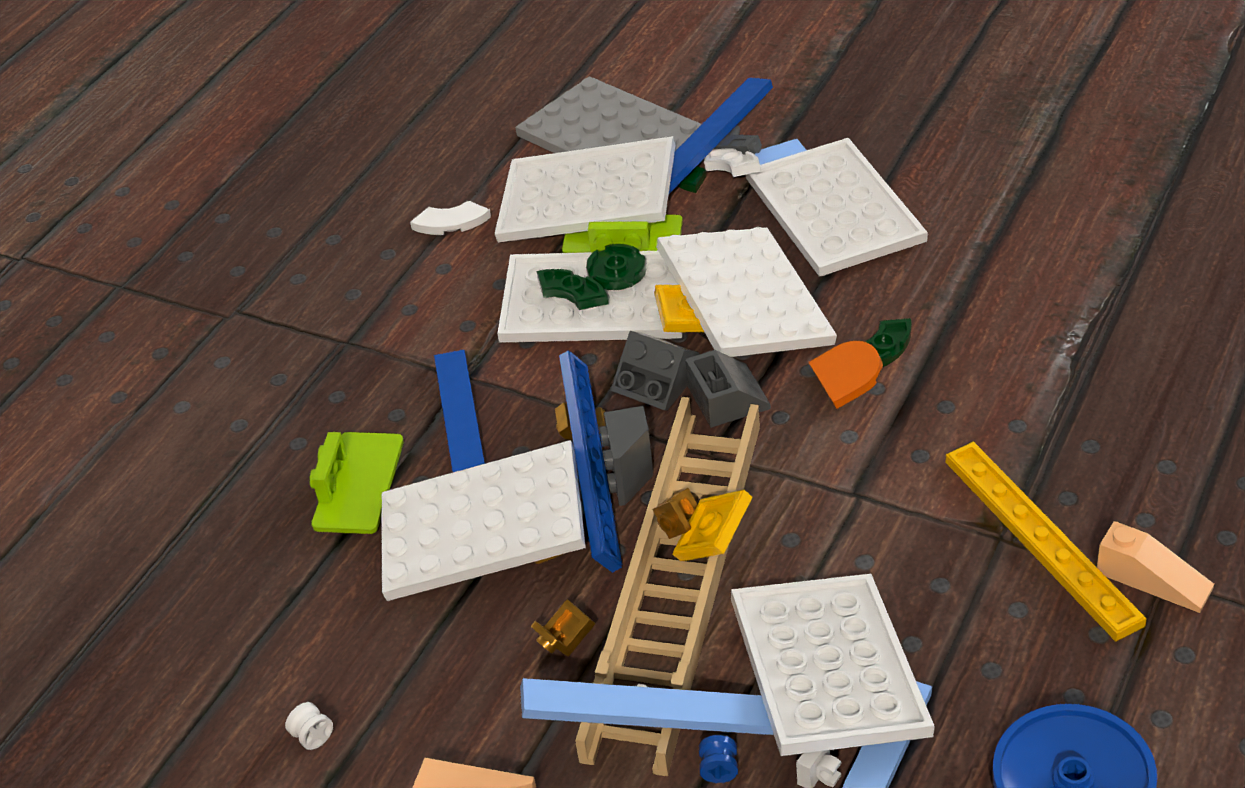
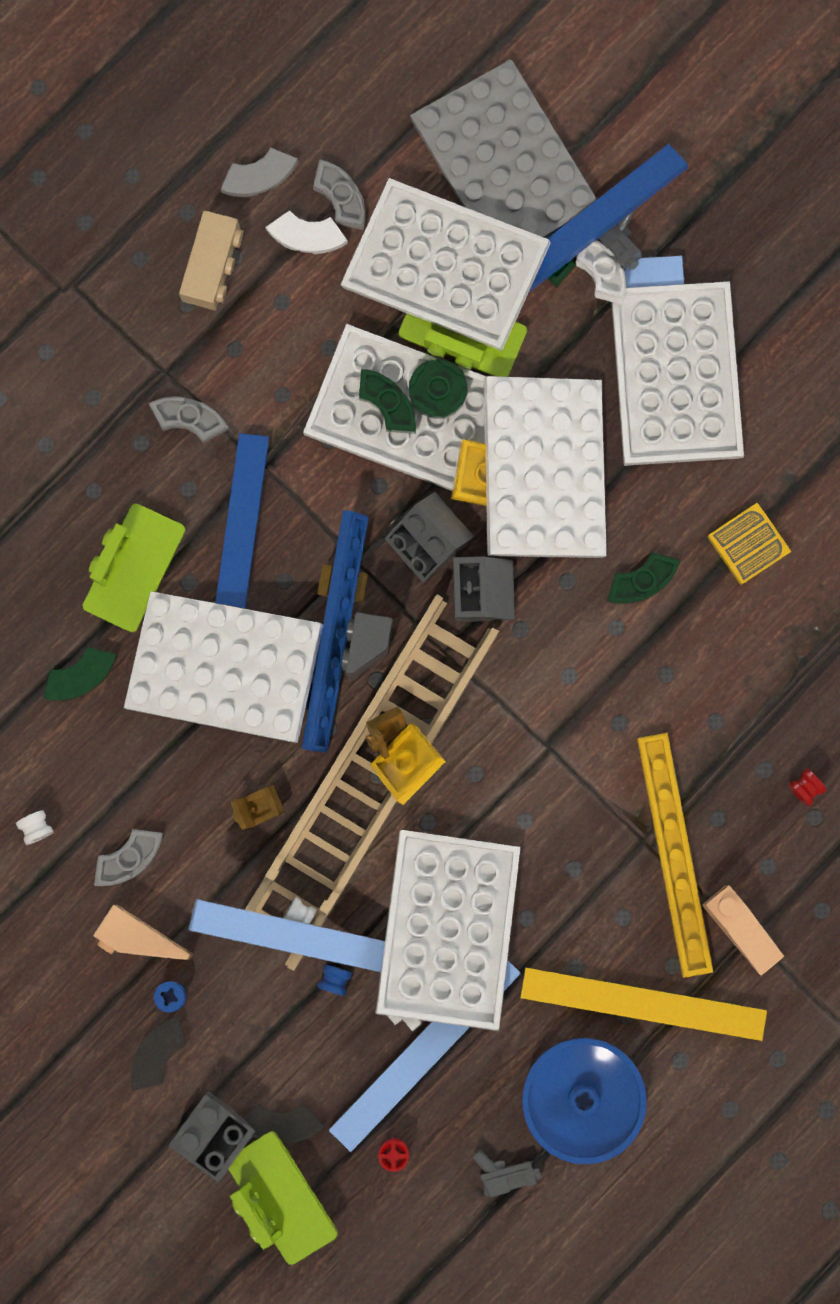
camera: 15 degrees right, 40 degrees up
(318, 591) = (80, 678): none -> dark green tile
(366, 253) = (211, 260): none -> tan brick
(383, 203) = (259, 176): none -> light grey tile
(391, 361) = (189, 415): none -> light grey tile
(431, 728) = (129, 860): none -> light grey tile
(472, 188) = (342, 193): none -> light grey tile
(847, 371) = (595, 608): orange tile -> none
(969, 292) = (749, 544): none -> tile
(1086, 674) = (643, 1004): none -> yellow tile
(1143, 436) = (807, 787): none -> red wheel

